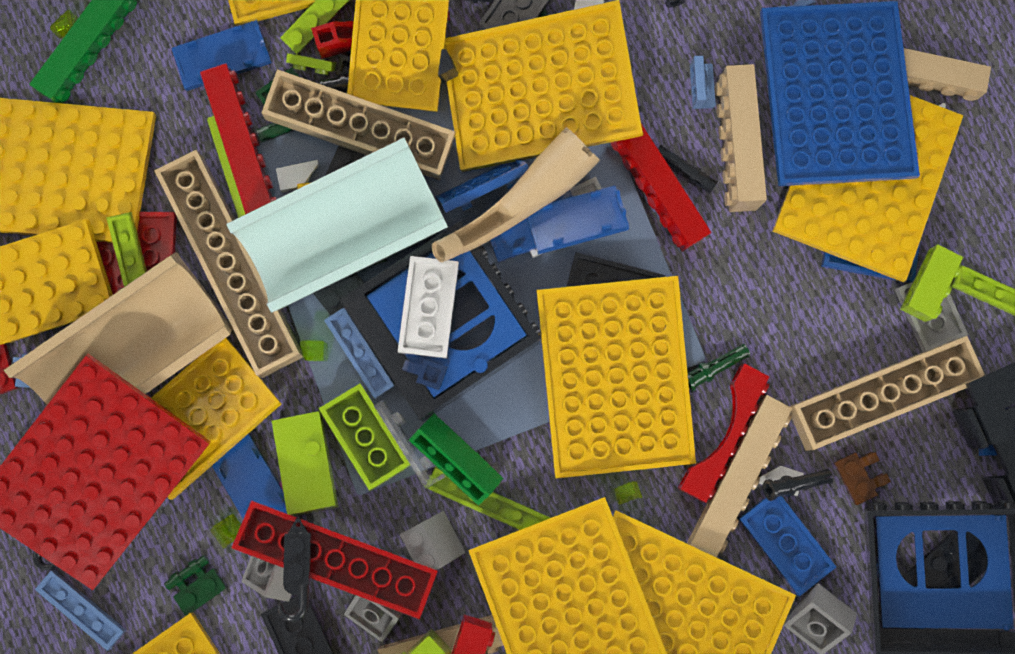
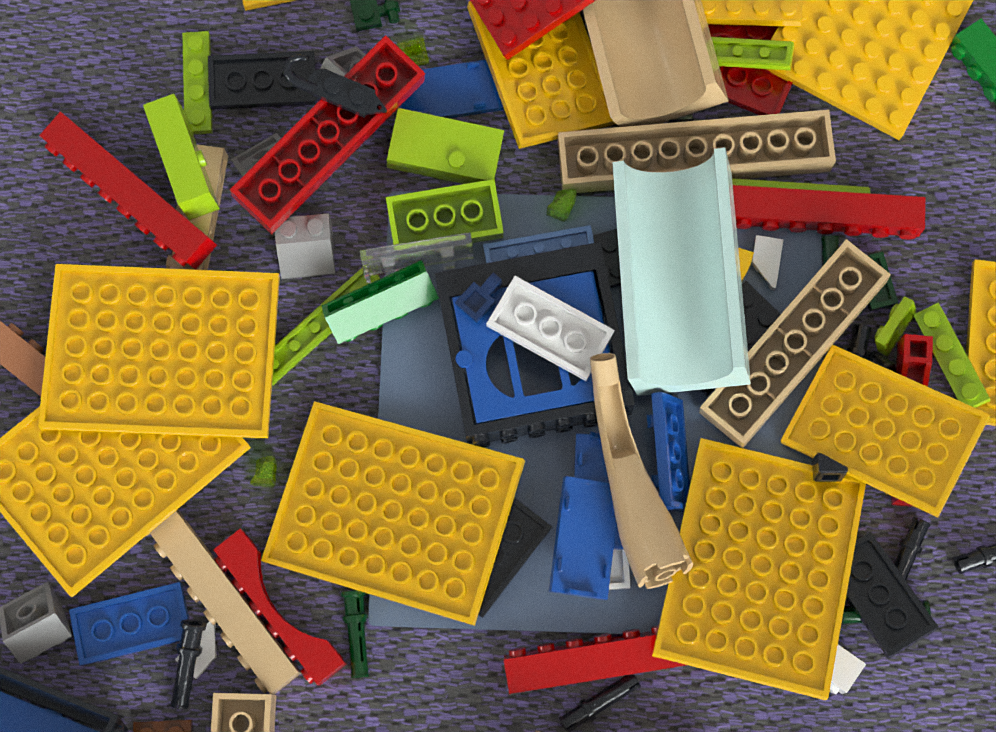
camera: 120 degrees right, 5 degrees down
(238, 47) = (945, 245): blue piece -> none

